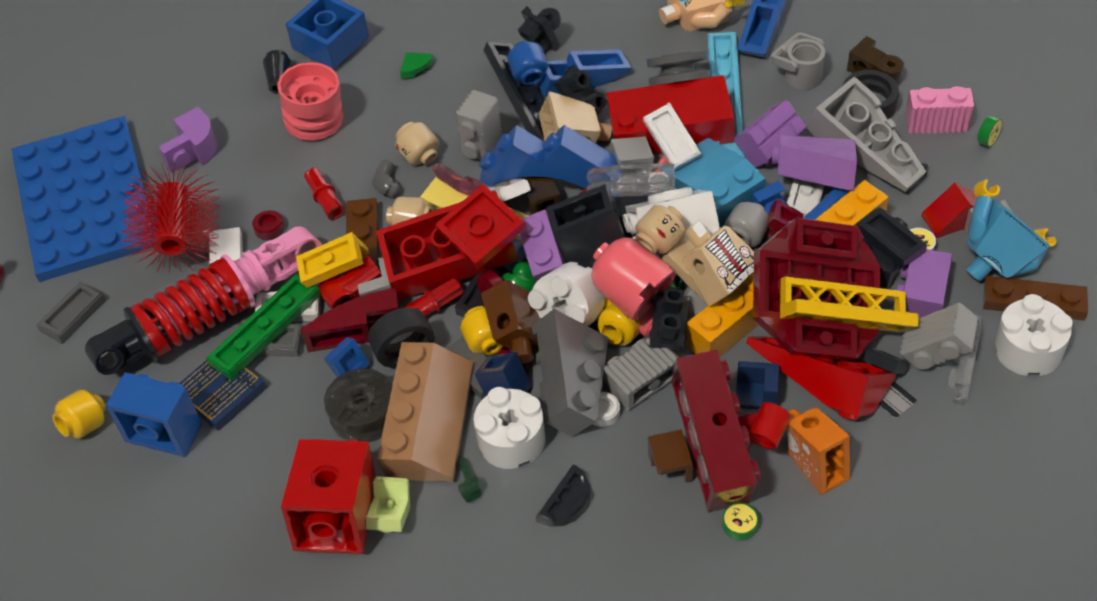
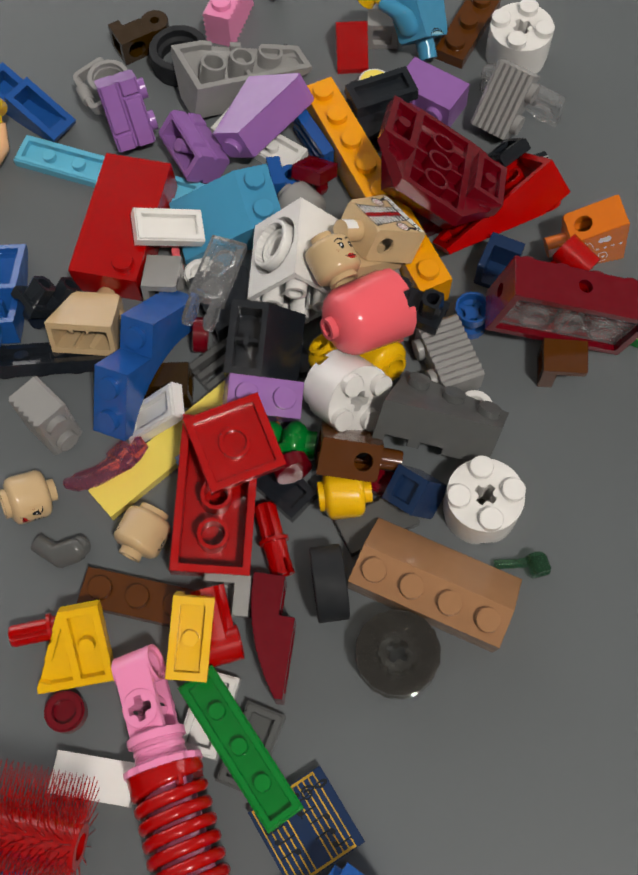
camera: 75 degrees left, 15 degrees up
(312, 206) = (77, 650): none -> yellow wing
(329, 496) = (519, 684): red brick -> none
(346, 357) = (327, 657): blue tile -> none
(389, 504) = (545, 655): yellowish green bracket -> none
(567, 500) = (574, 472): black tile -> none
(678, 67) = (65, 194): dark grey wheel -> none
(777, 74) = (125, 110): none -> medium lavender brick
(864, 317) = (470, 154): yellow fence -> none

